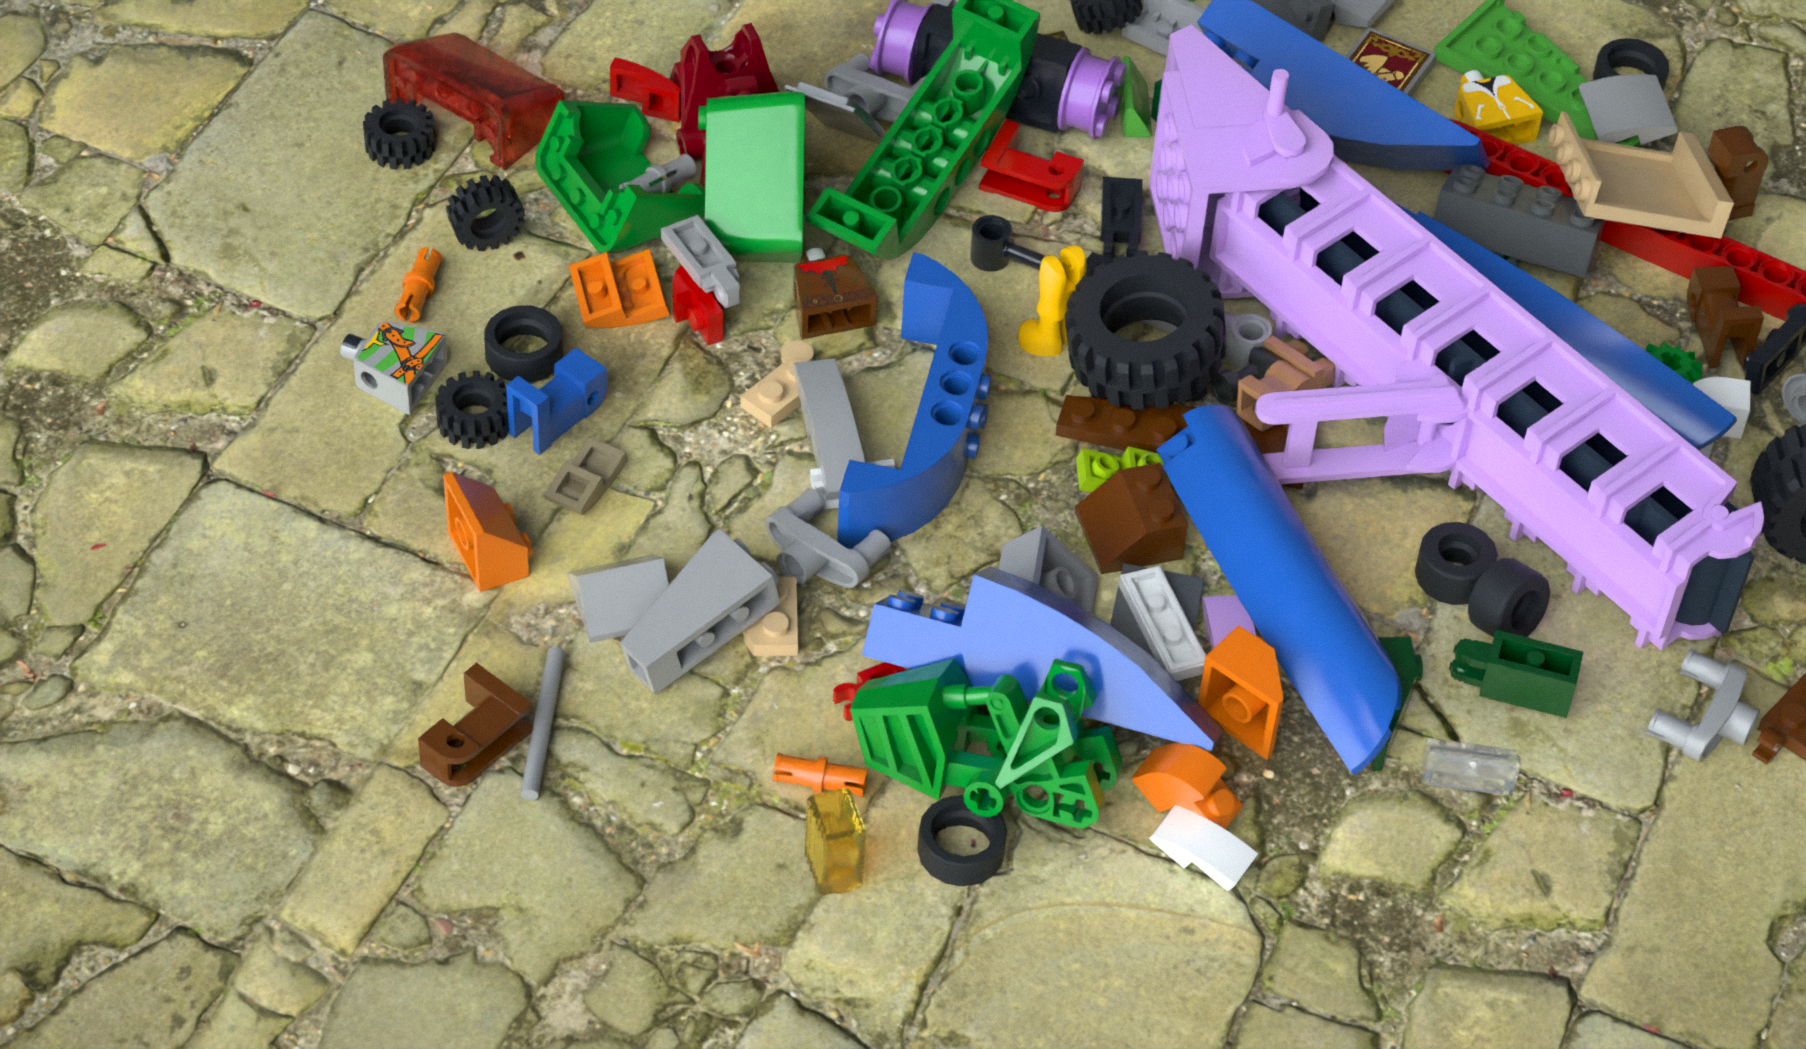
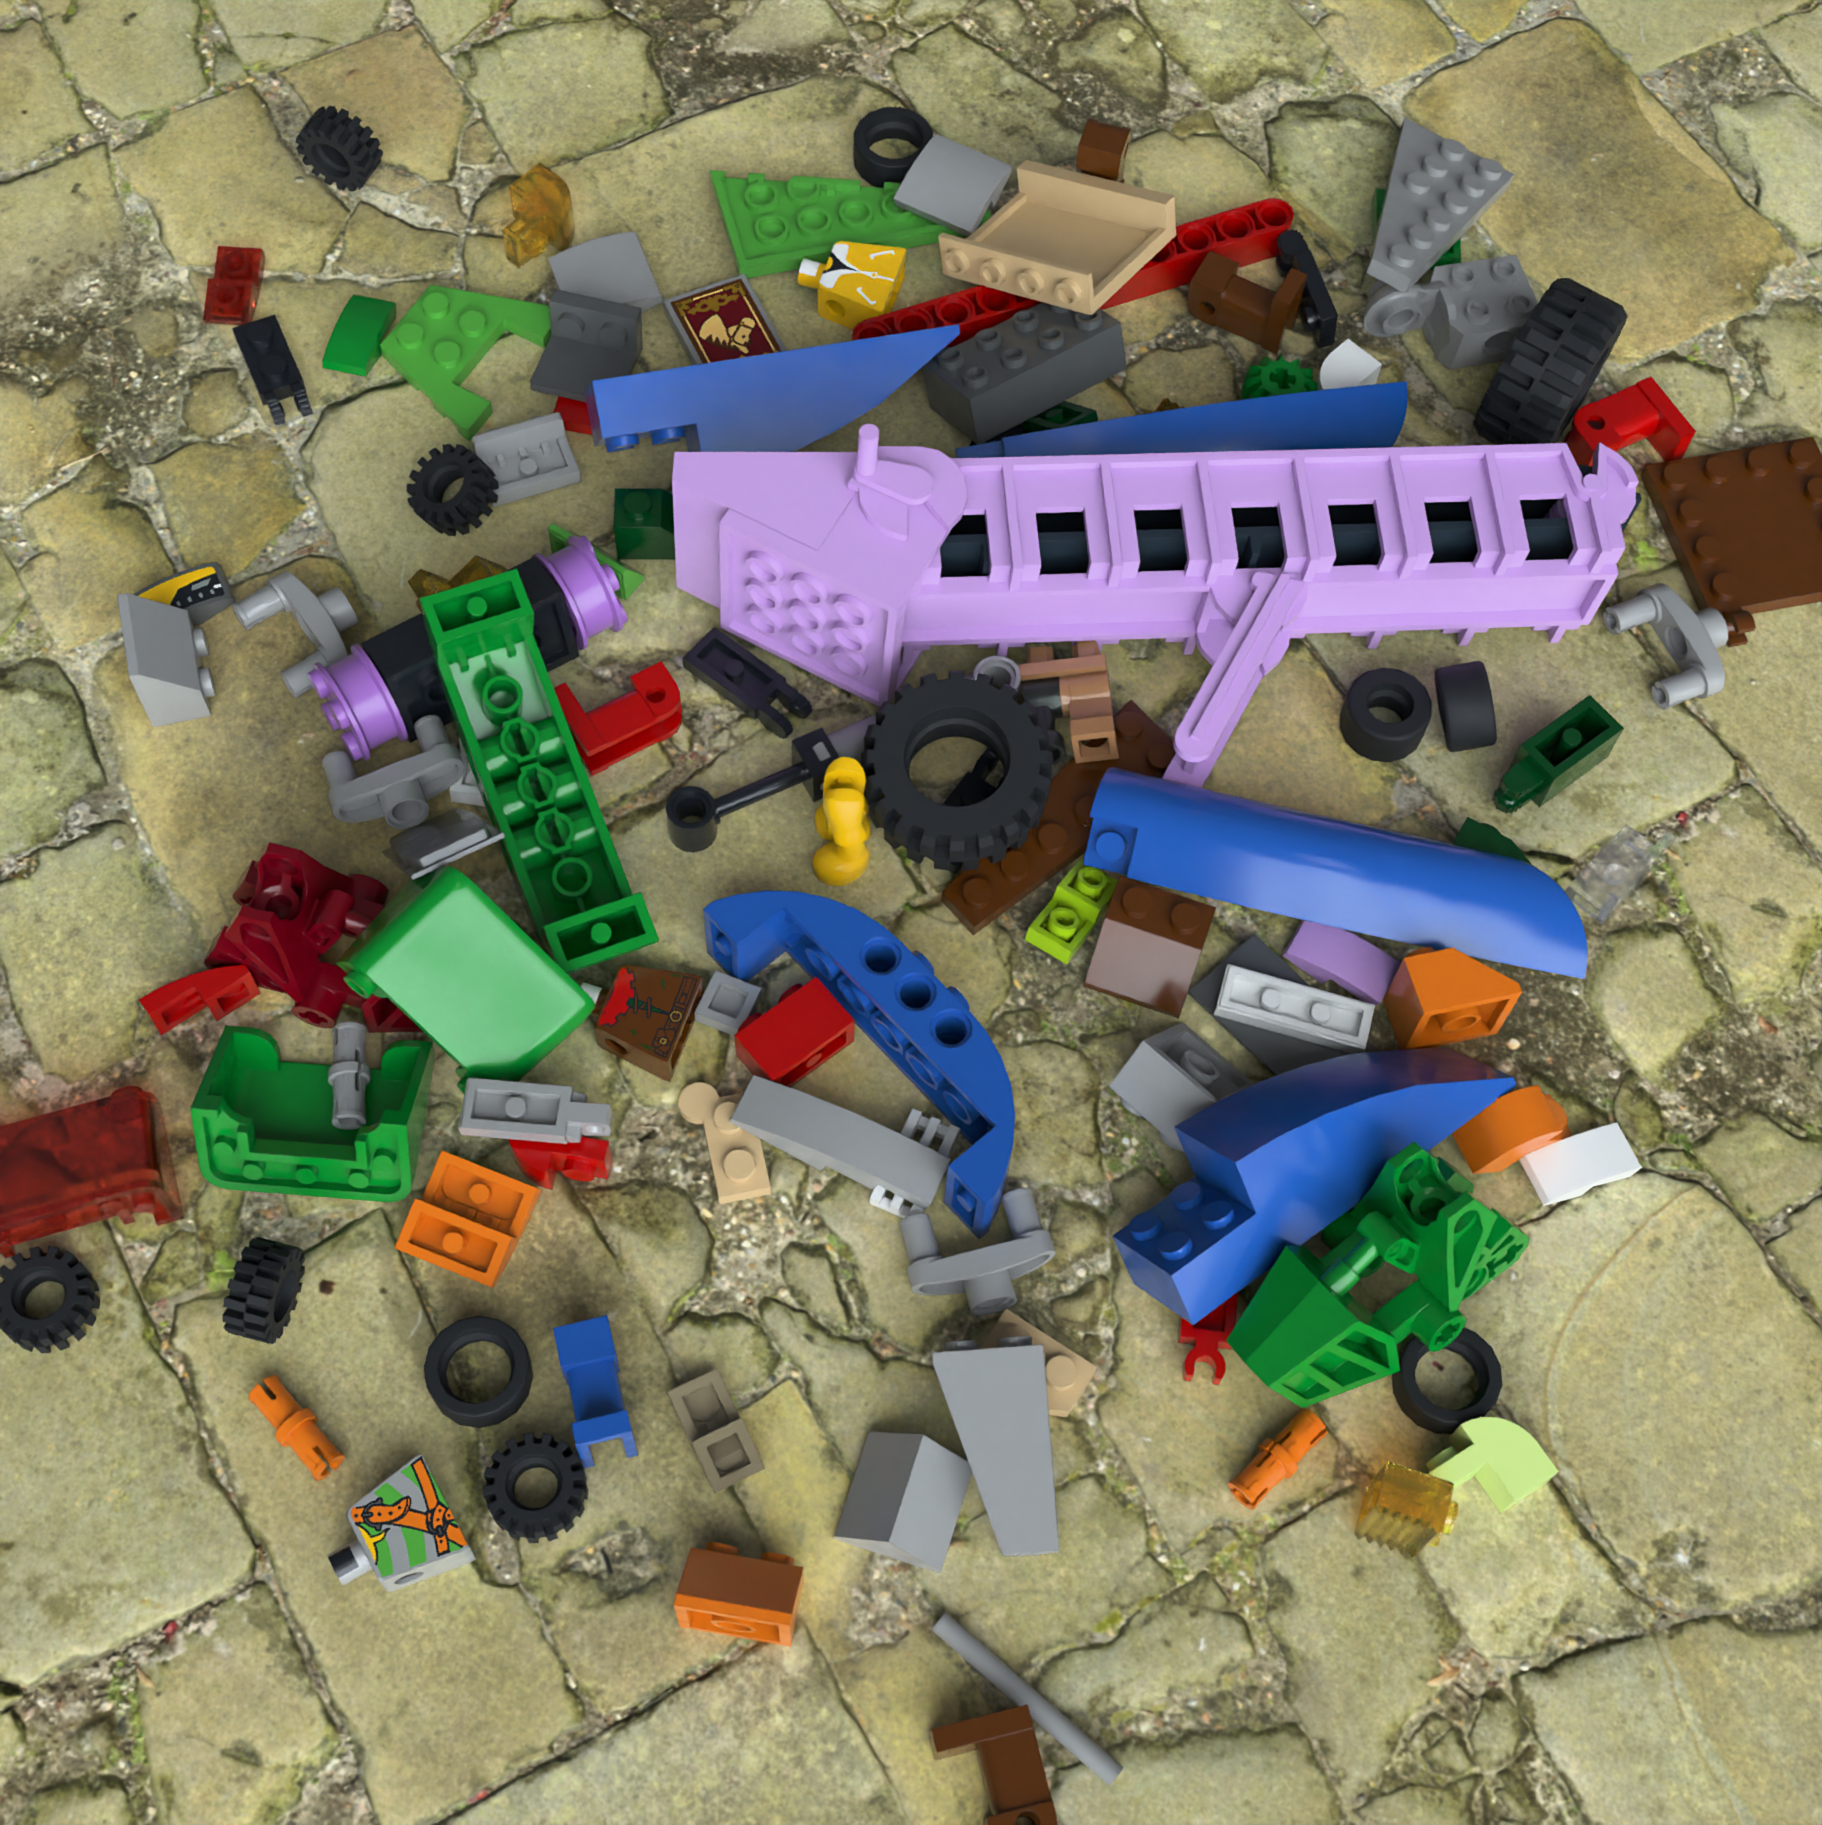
camera: 55 degrees left, 15 degrees up
(880, 335) = (727, 1003): none -> light grey tile
(885, 372) = (794, 1034): none -> red brick
(922, 886) = (1499, 1456): none -> yellowish green brick

